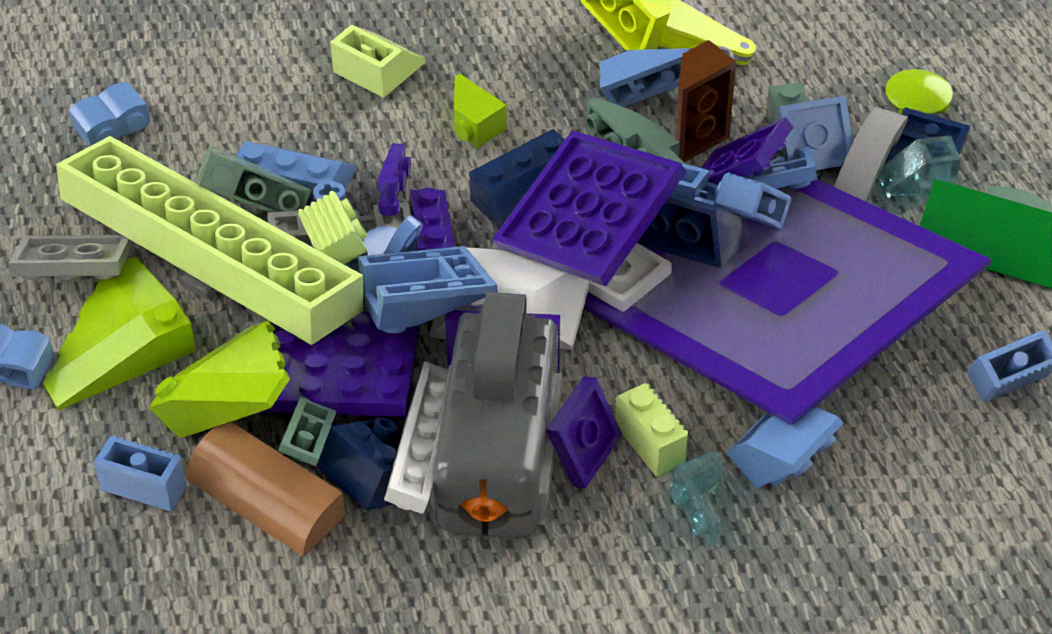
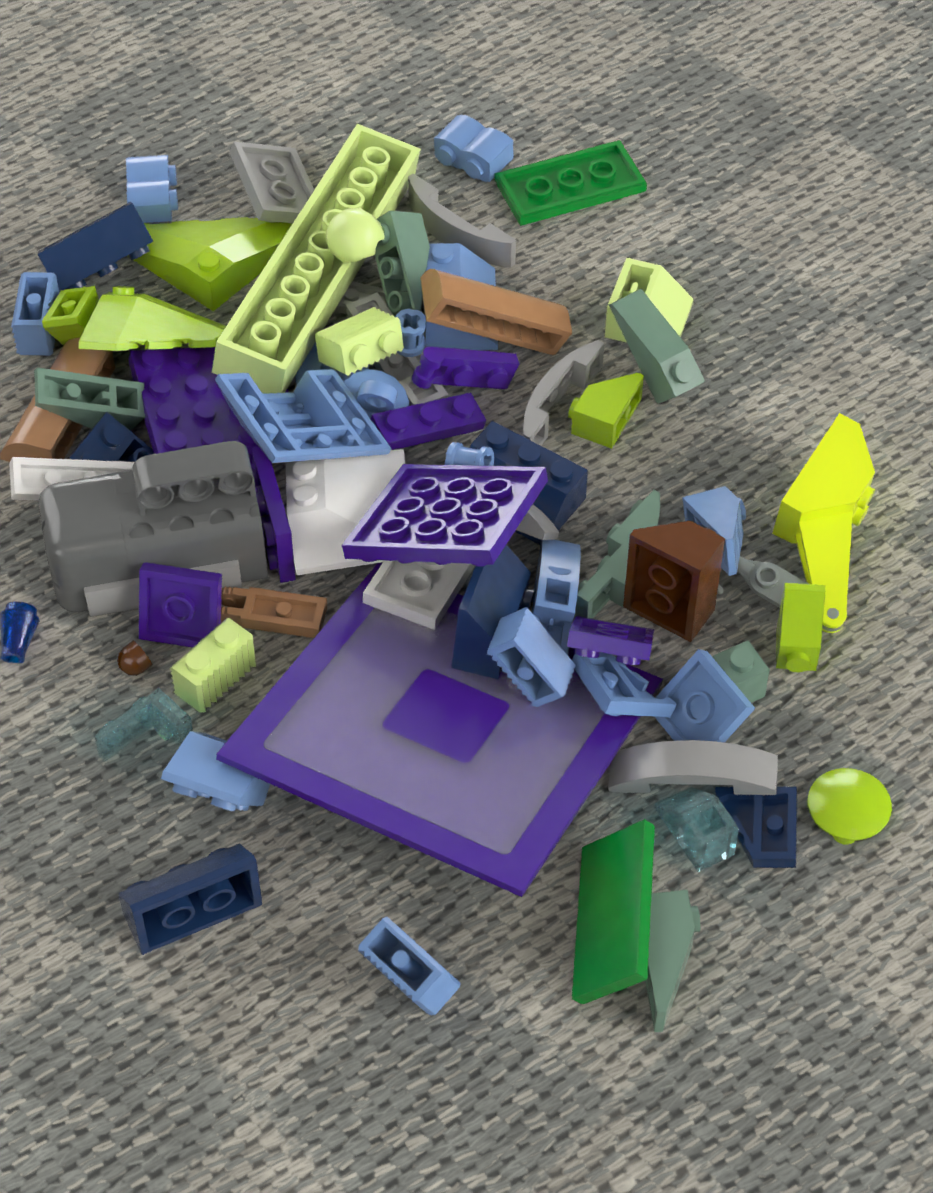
camera: 70 degrees right, 5 degrees up
(72, 405) = (96, 247): none -> dark blue slope
(170, 432) = (70, 313): none -> lime slope
(186, 72) = (570, 182): none -> green tile
(188, 157) = (488, 243): none -> light grey slope
(222, 188) = (353, 235): none -> yellowish green hair
(343, 137) = (494, 312): none -> medium nougat brick
(438, 142) = (576, 369): none -> light grey slope
(440, 53) = (656, 347): none -> sand green slope
(509, 195) = (461, 455): none -> medium blue bush
(545, 574) = (18, 627): none -> clear blue cone
(609, 365) = (274, 610): none -> medium nougat hinge
(613, 490) = (133, 659): none -> reddish brown hinge
(760, 60) = (800, 627): none -> lime slope
(903, 493) = (191, 897): none -> dark blue slope

